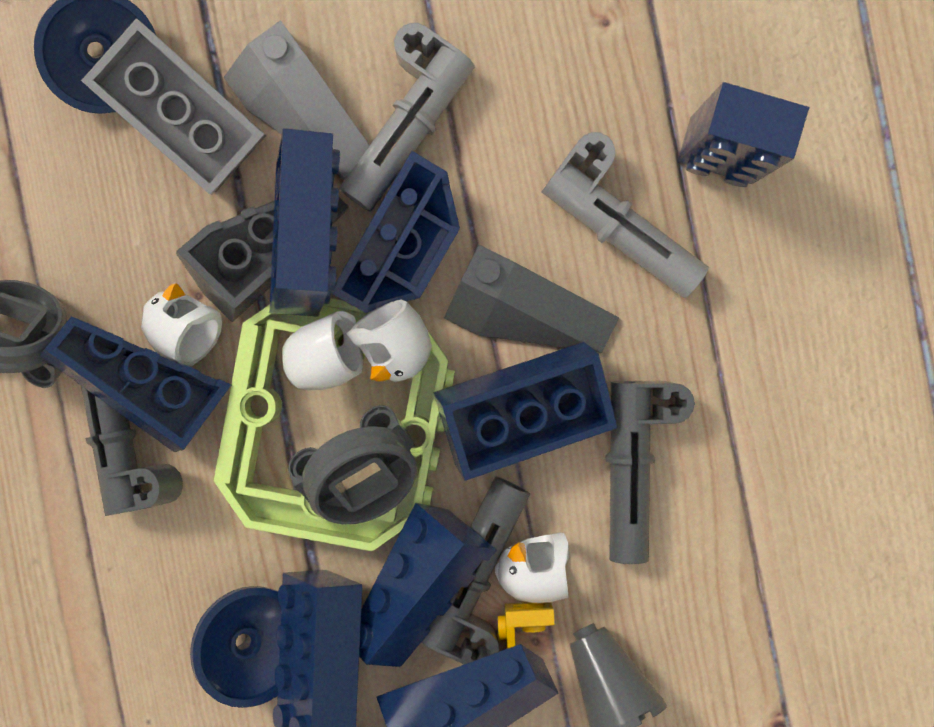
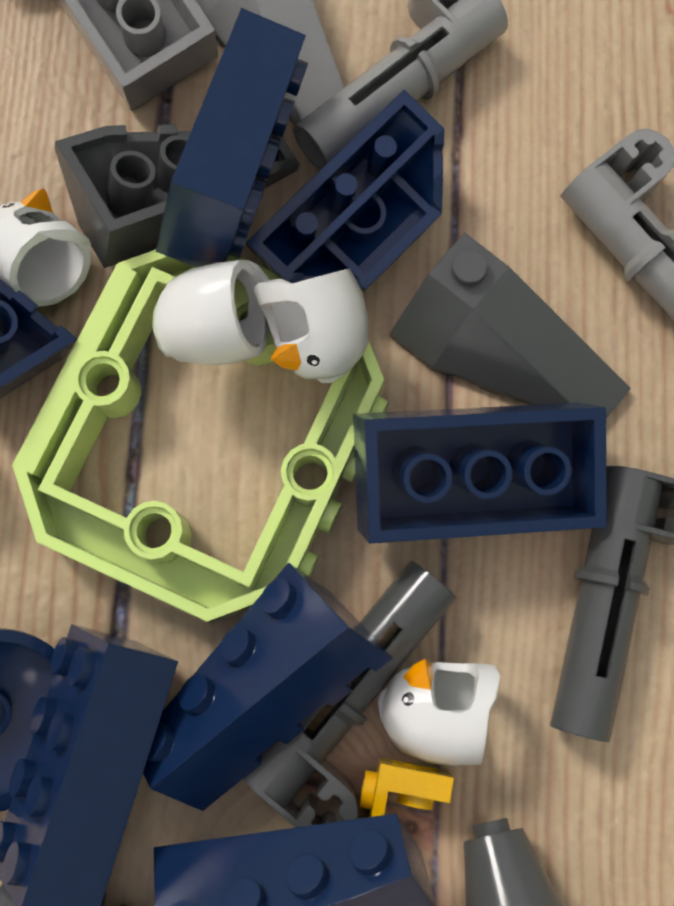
camera: 25 degrees right, 10 degrees down
(321, 471) = (204, 447): dark grey piece -> none

